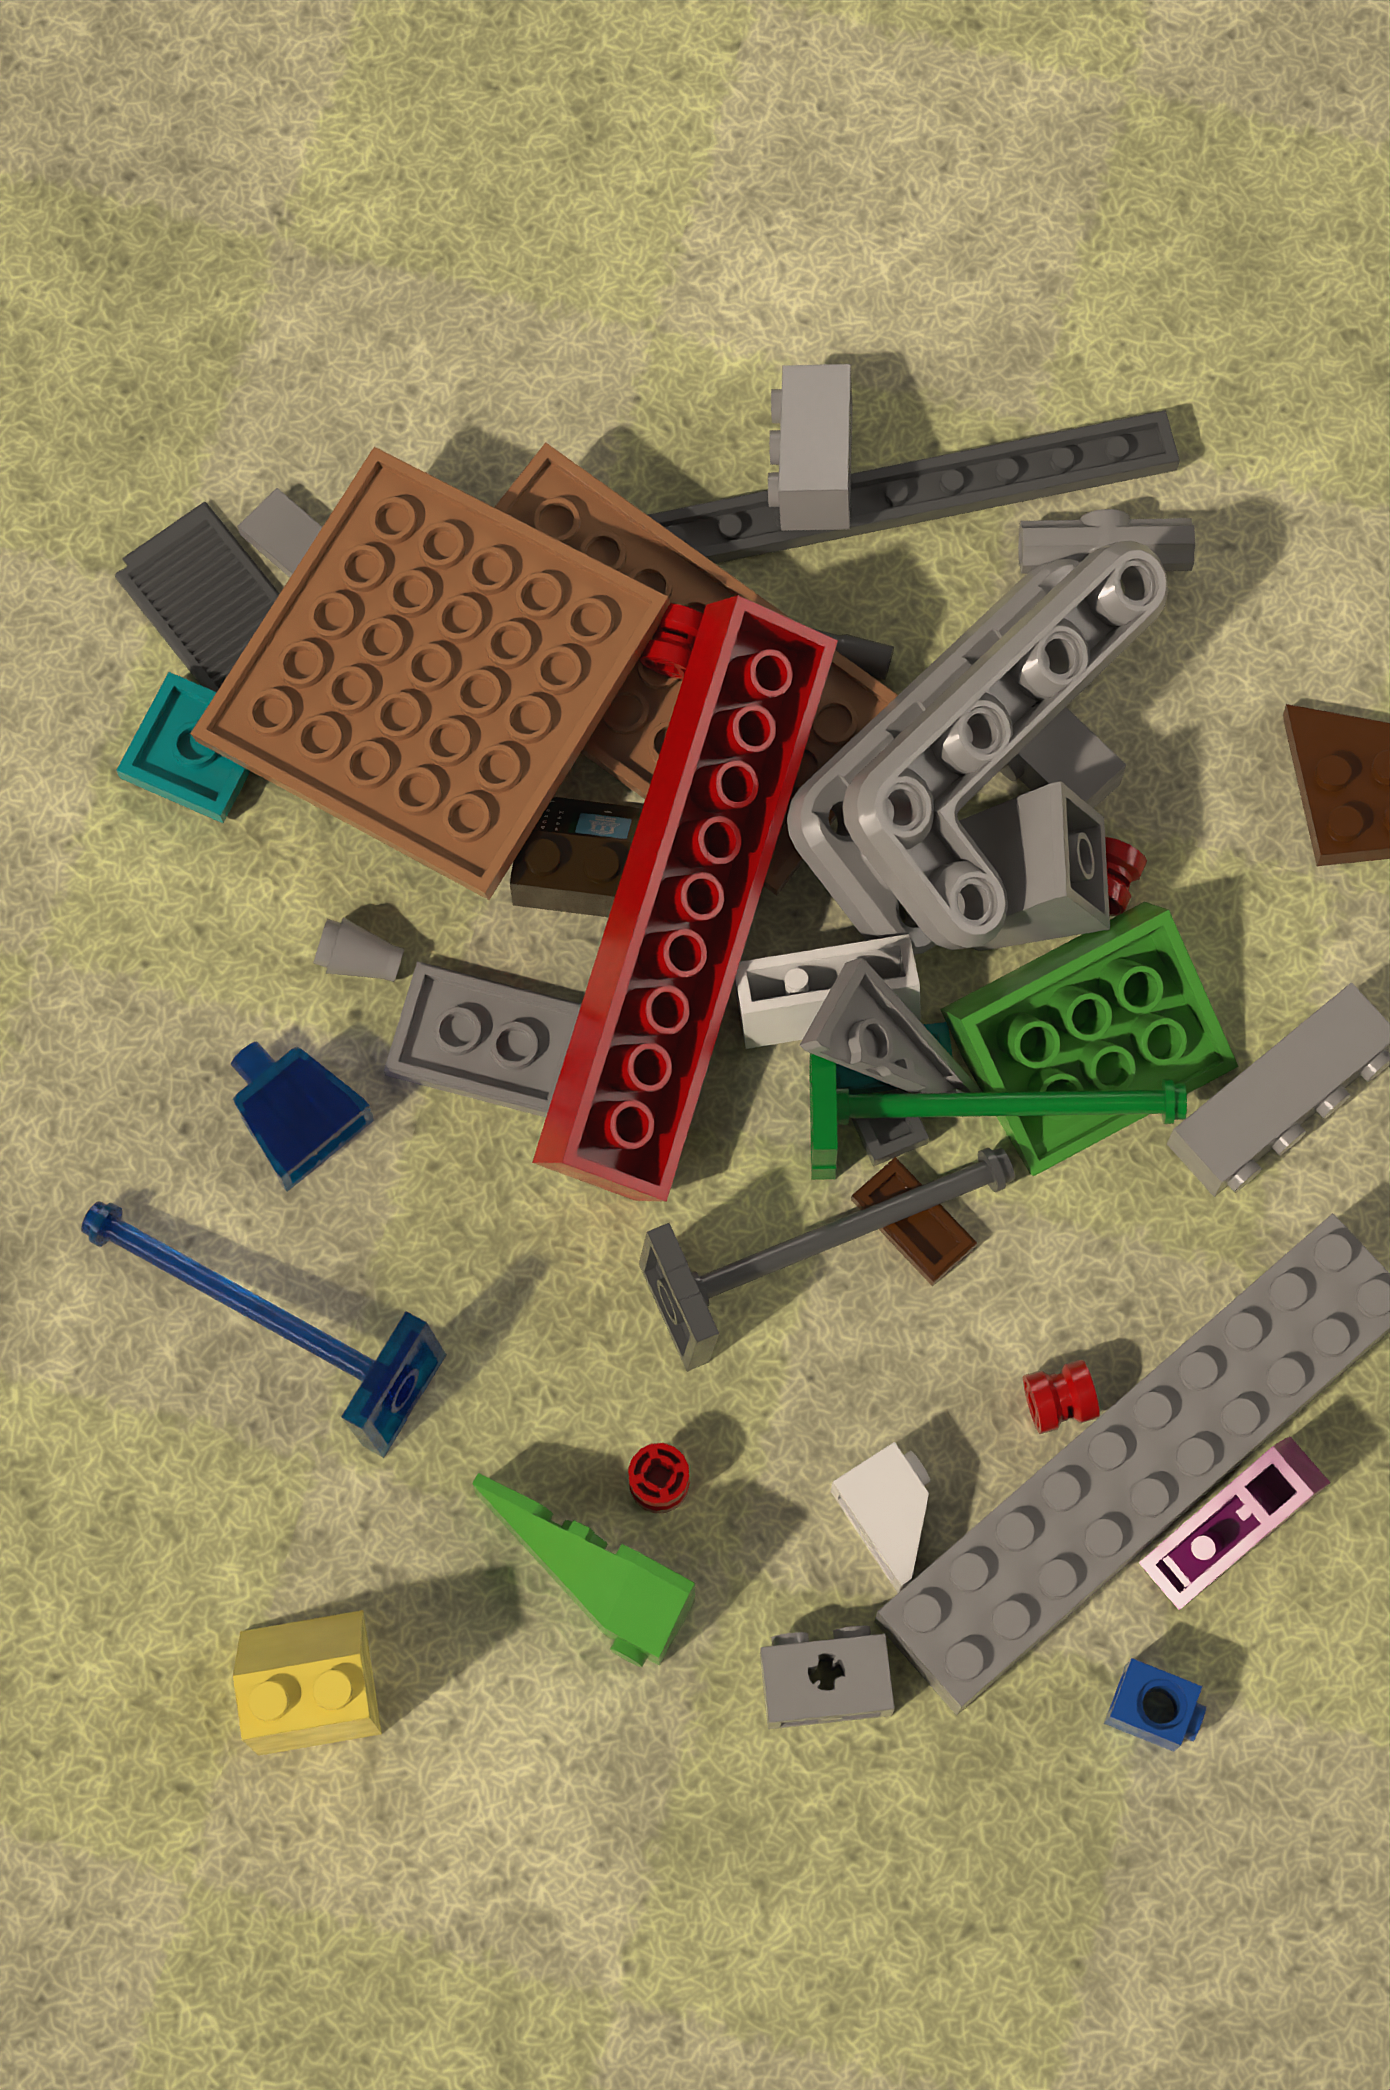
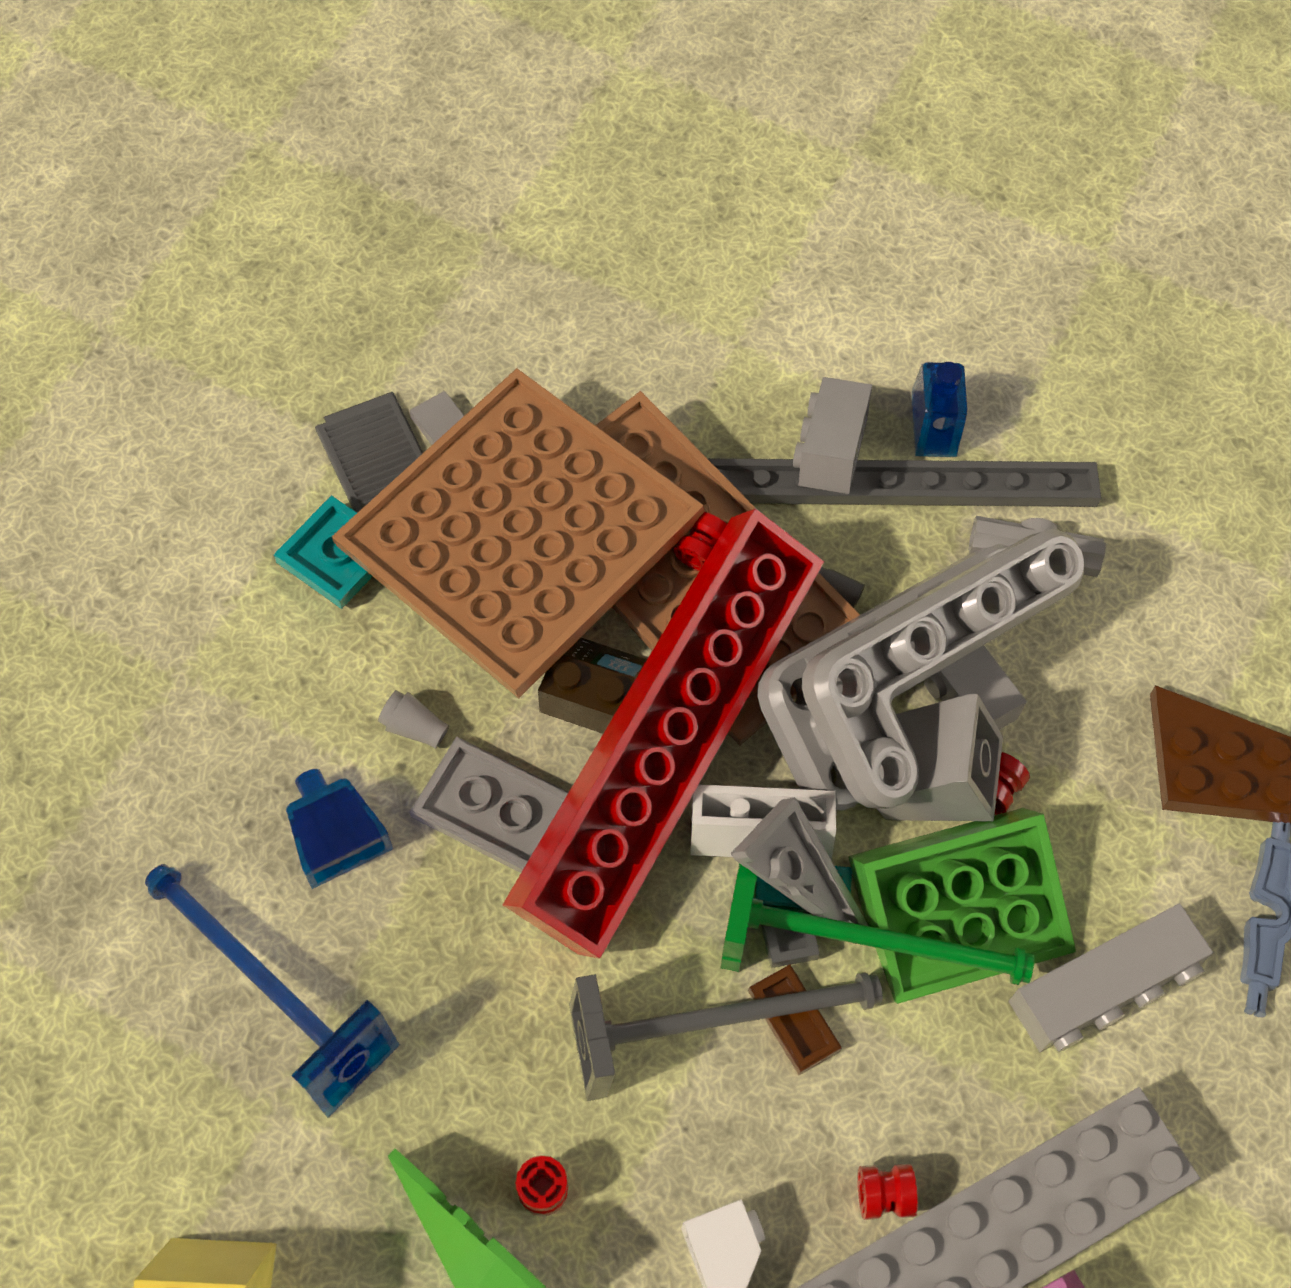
camera: 10 degrees right, 10 degrees down
(945, 366) = (936, 395): none -> clear blue torso

